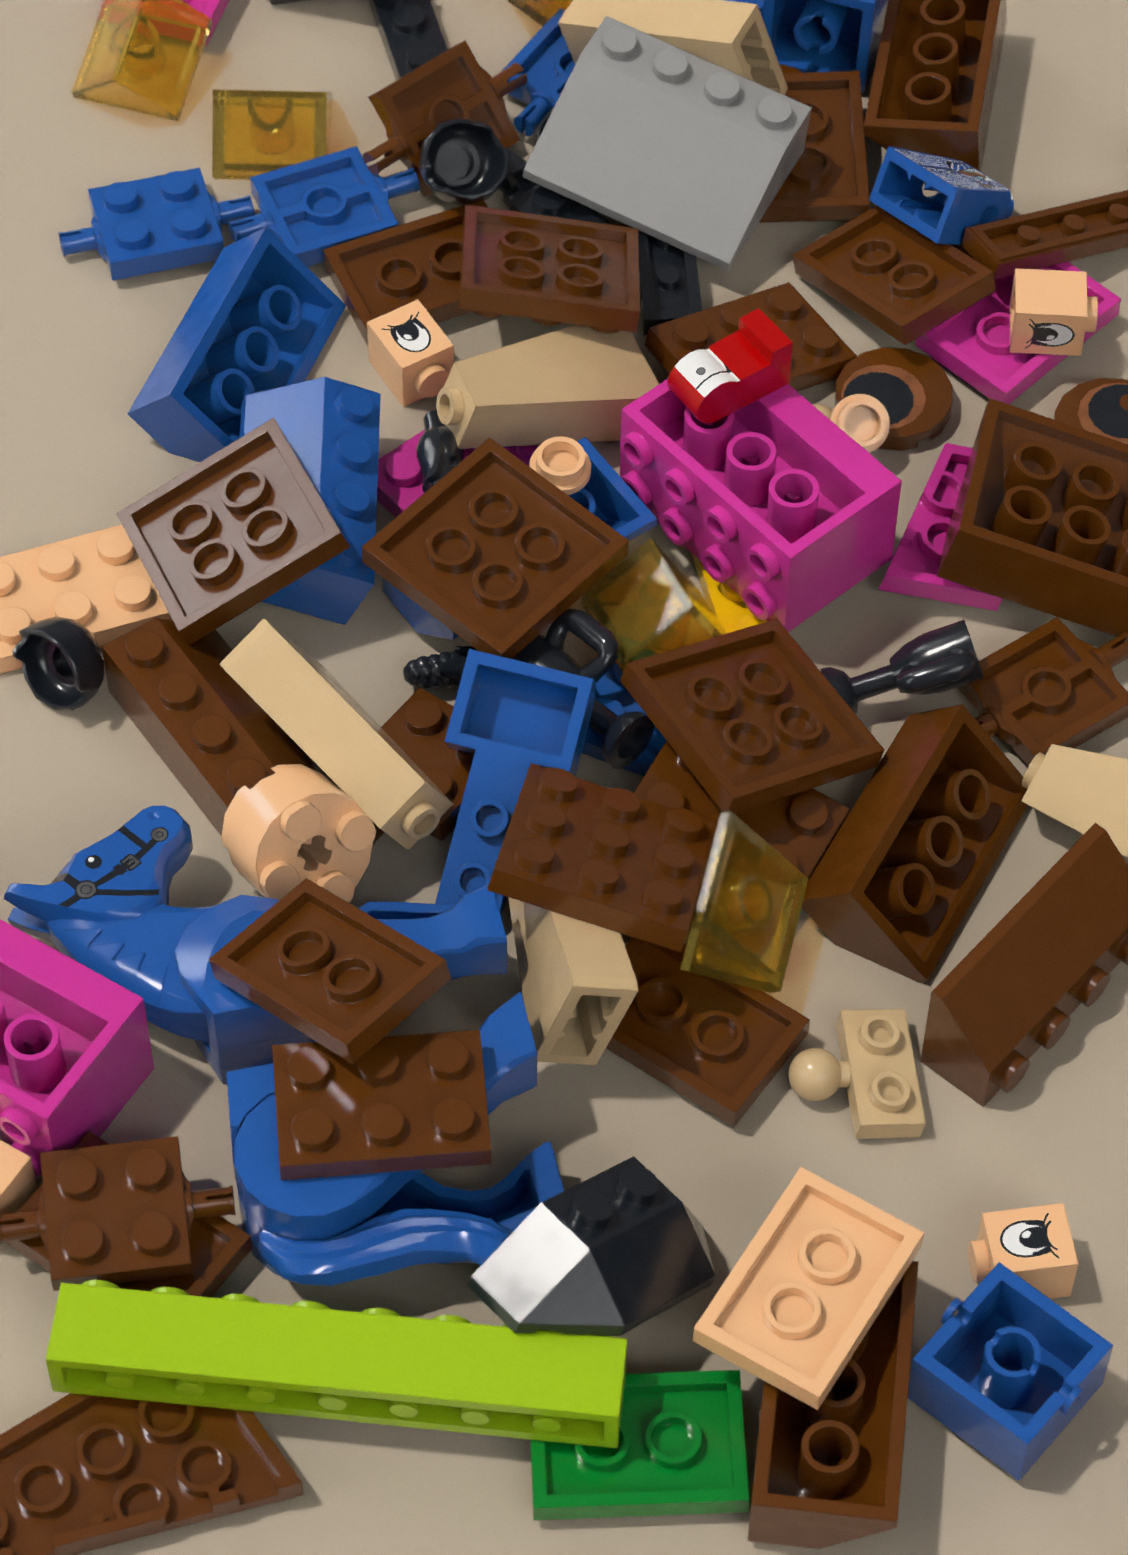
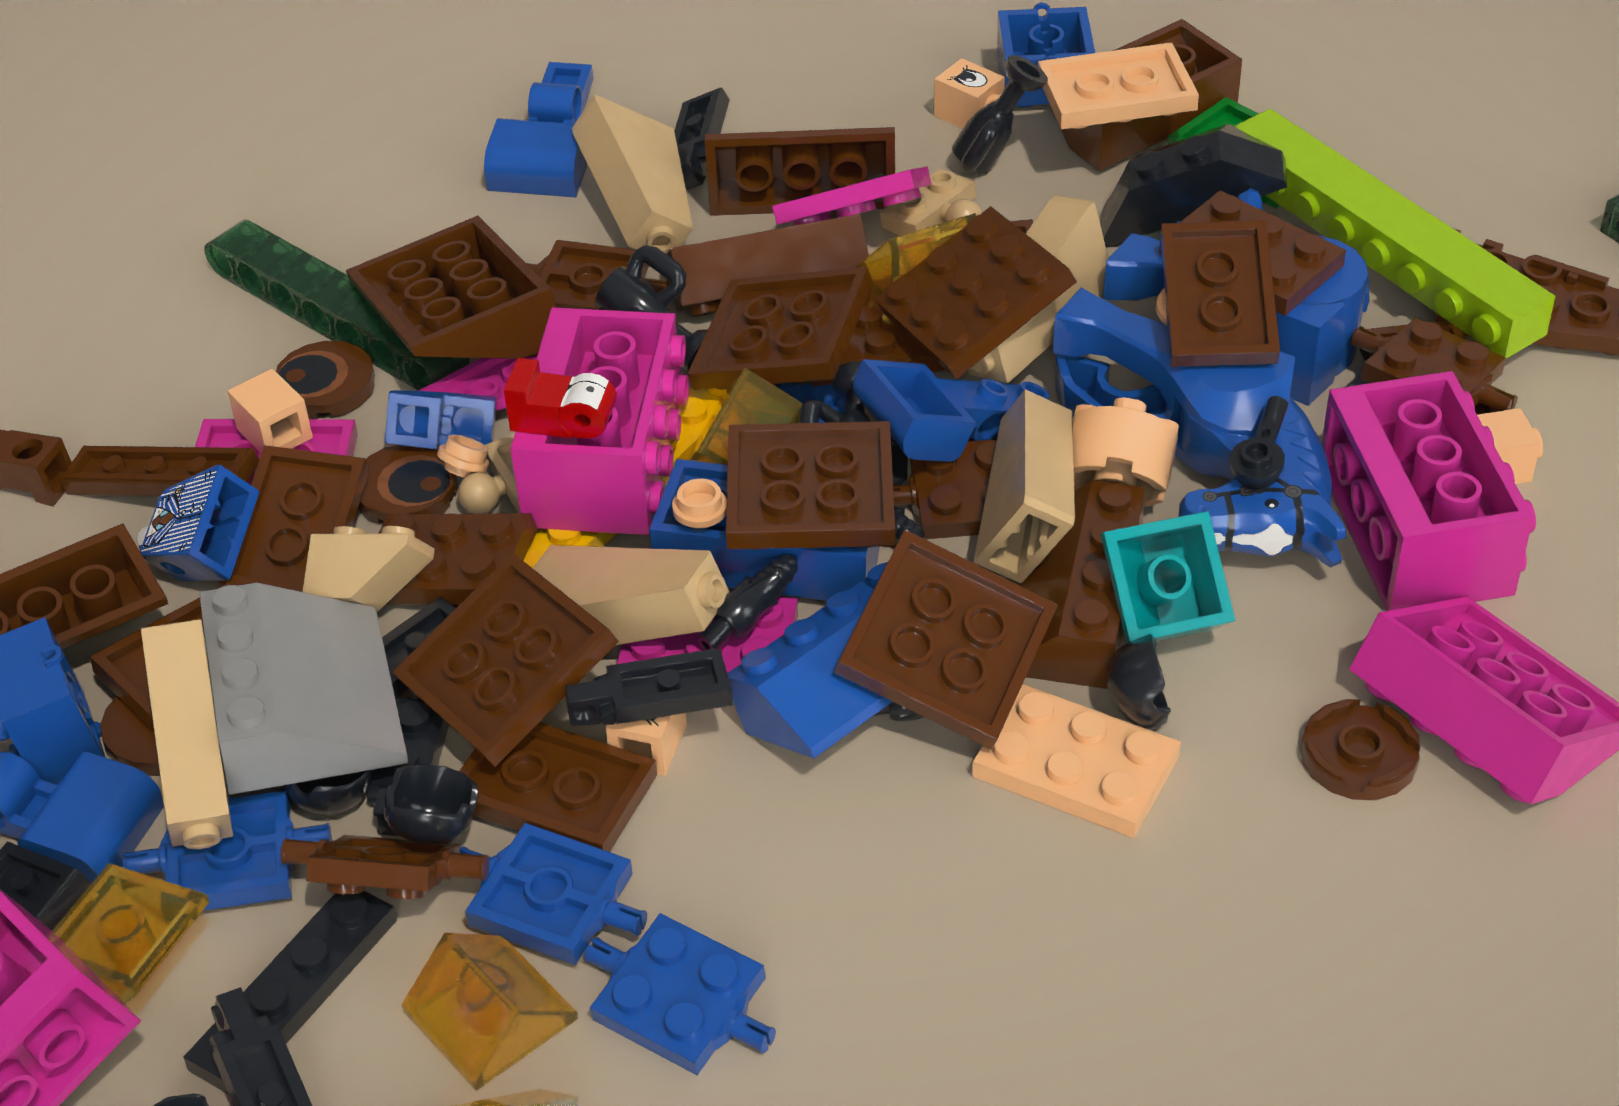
camera: 130 degrees left, 10 degrees down
(122, 737) = (1168, 577): none -> teal slope
(139, 878) = (1260, 460): none -> black plate
(245, 333) = (764, 824): blue slope -> none
(401, 325) = (651, 689): none -> black hinge
(773, 259) = (364, 565): none -> tan slope
(904, 941) = (854, 198): none -> dark pink plate
(911, 1181) = (991, 126): none -> black piece
(933, 431) = (430, 417): none -> blue slope

